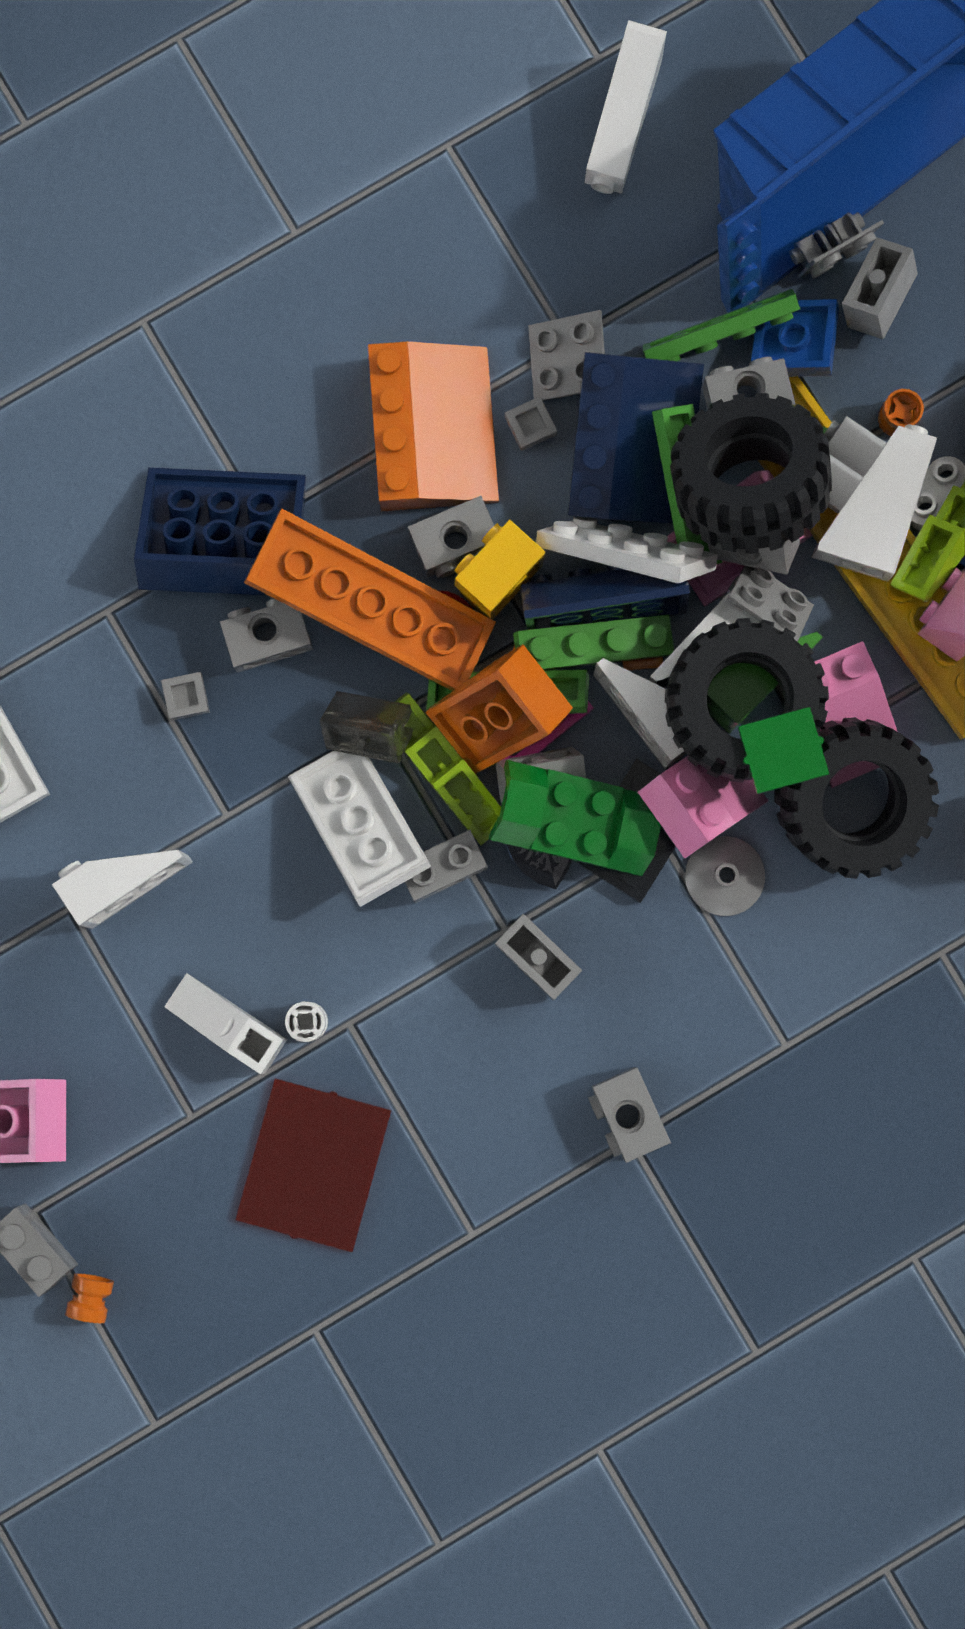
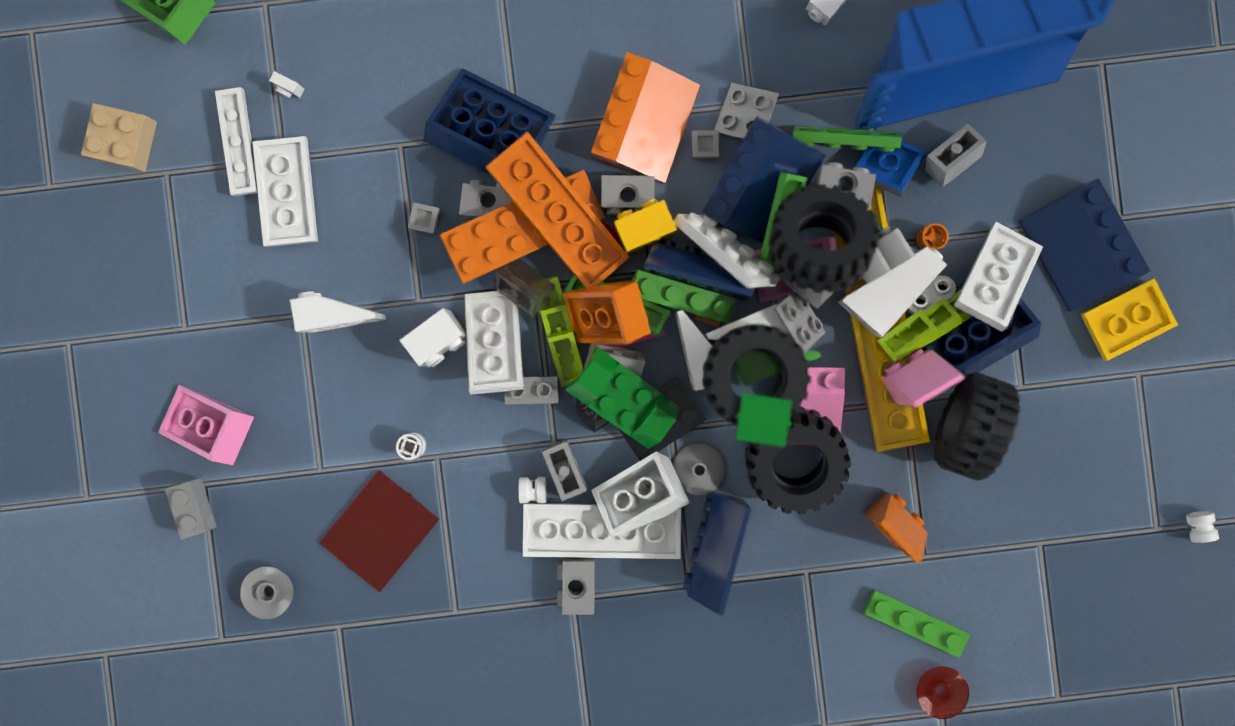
camera: 20 degrees right, 5 degrees up
(89, 1302) = (212, 552): orange wheel -> none
(179, 1340) = (254, 593): none -> light grey dish
(226, 1024) = (362, 427): white slope -> none
(276, 852) = (435, 338): none -> white brick
(306, 669) = (503, 235): none -> orange plate
(505, 1007) = (532, 490): none -> white wheel
(628, 1022) = (582, 533): none -> white plate
(659, 944) = (640, 495): none -> white slope
(698, 805) = (698, 424): bright pink slope -> none
(802, 972) = (717, 551): none -> dark blue slope
(845, 238) = (948, 113): light grey hinge -> none

